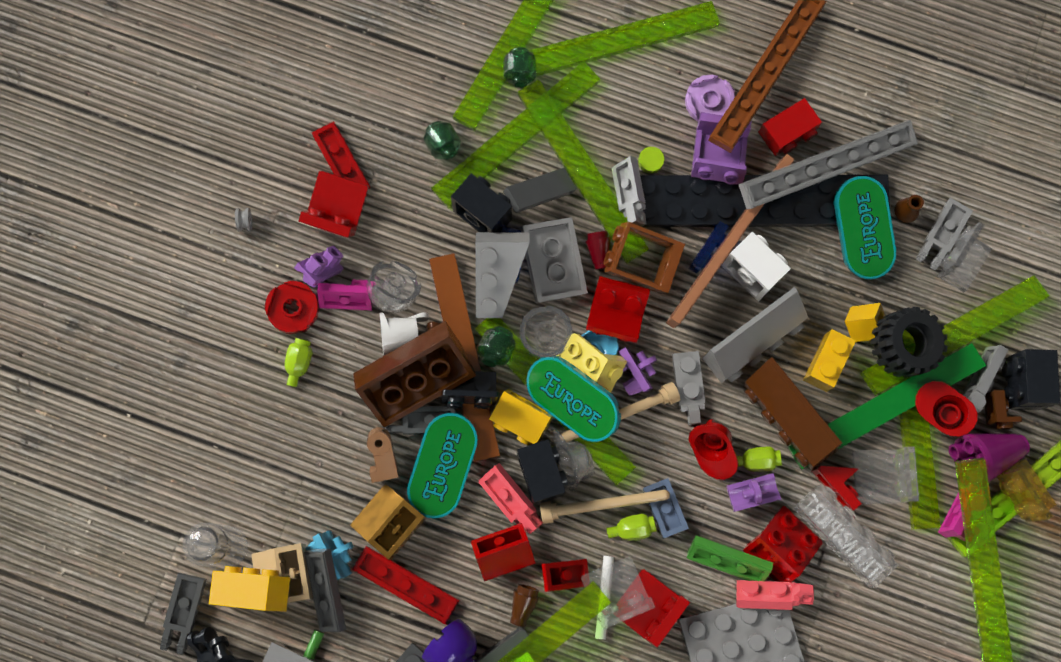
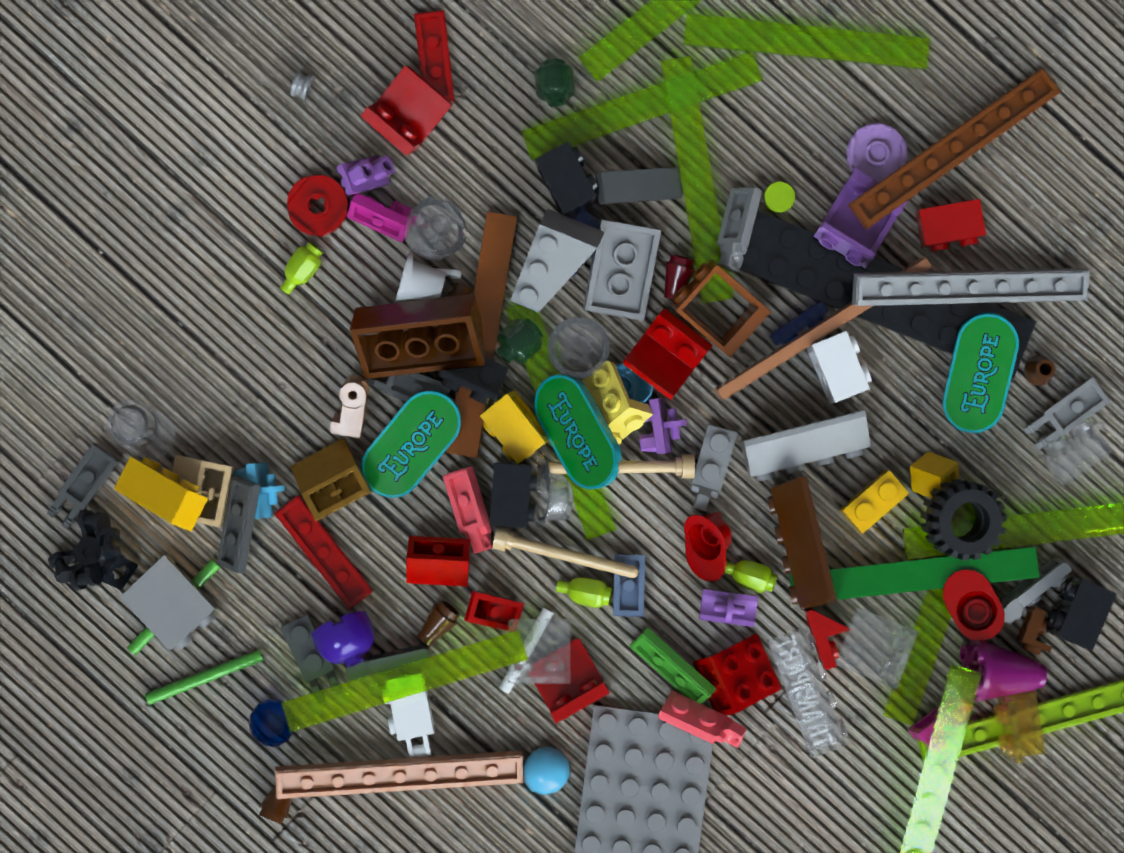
camera: 25 degrees right, 10 degrees up
(519, 67) = (675, 34): clear green head -> none

